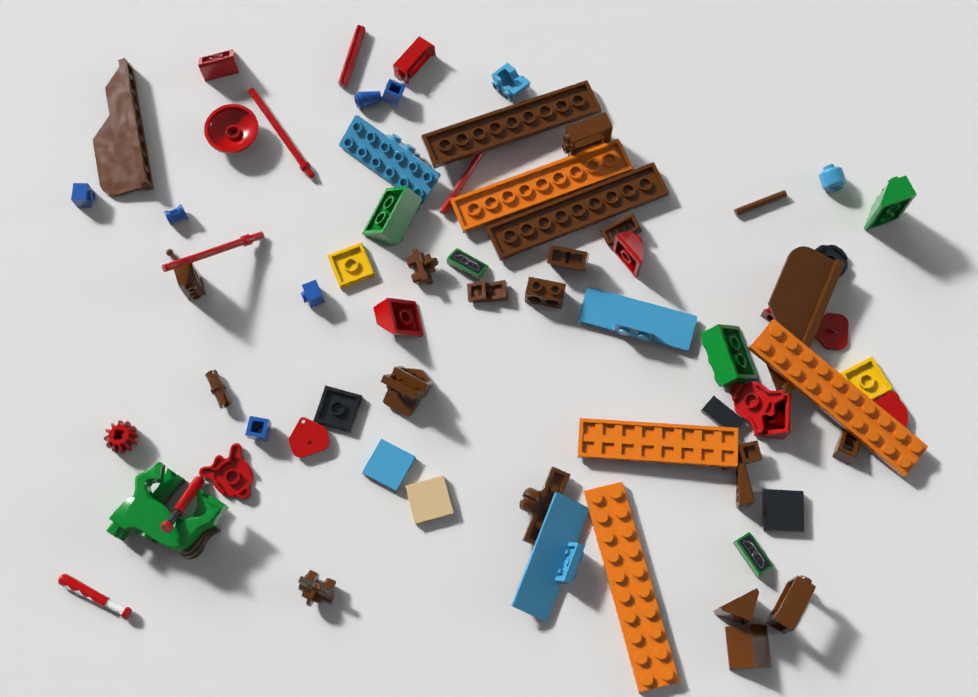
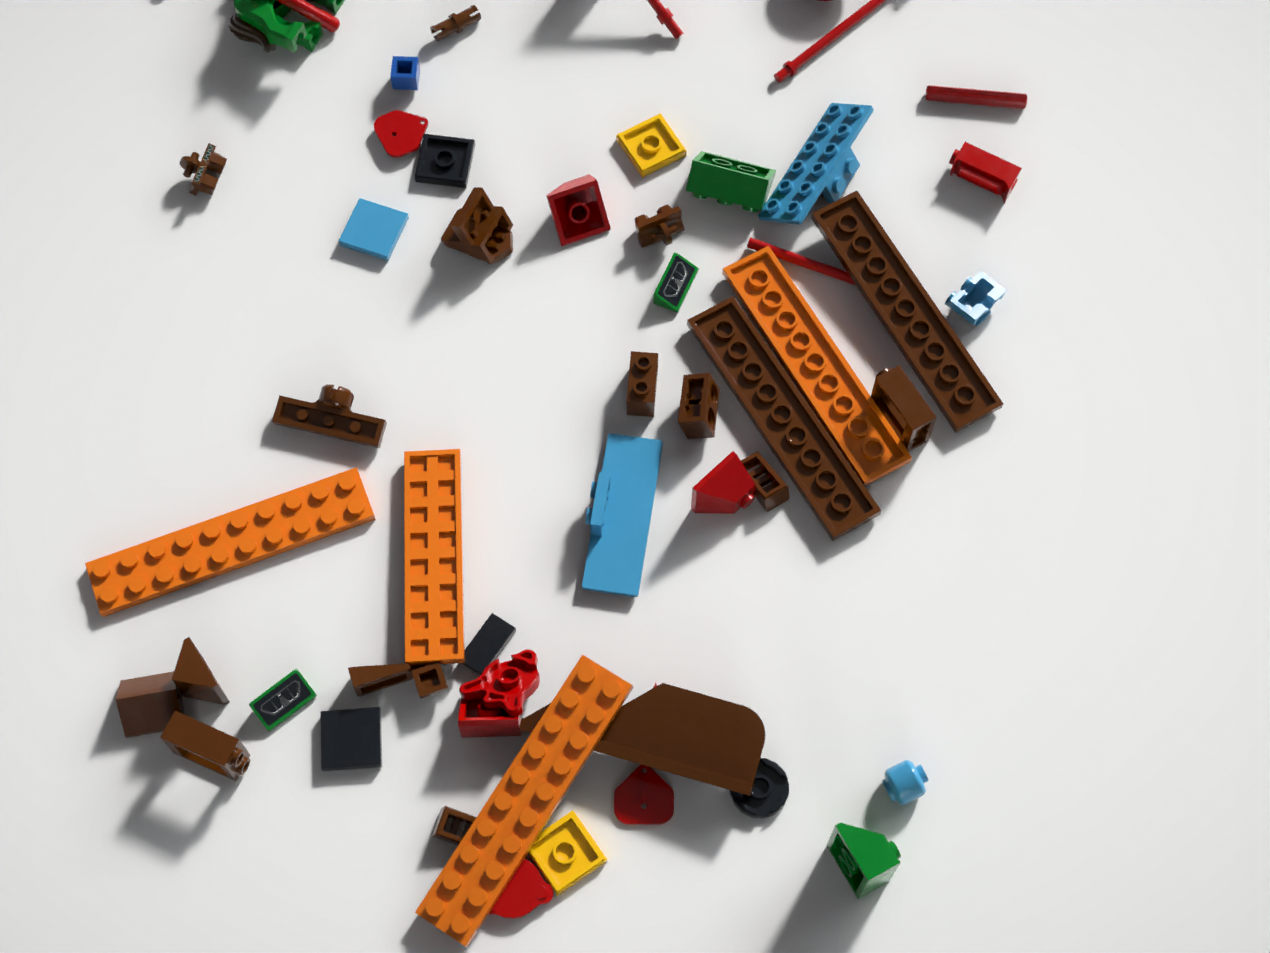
camera: 80 degrees right, 5 degrees down
(231, 474) = (346, 57): red tile -> none
(312, 294) = (600, 104): blue plate -> none
(367, 98) = (909, 124): blue cone -> none
(393, 92) = (930, 149): blue plate -> none
(429, 500) = (330, 282): tan tile -> none
(487, 292) = (637, 314): reddish brown slope -> none
(552, 557) = (260, 433): dark azure bracket -> none
(728, 355) = (585, 631): green slope -> none
(759, 203) = (844, 677): reddish brown bar -> none

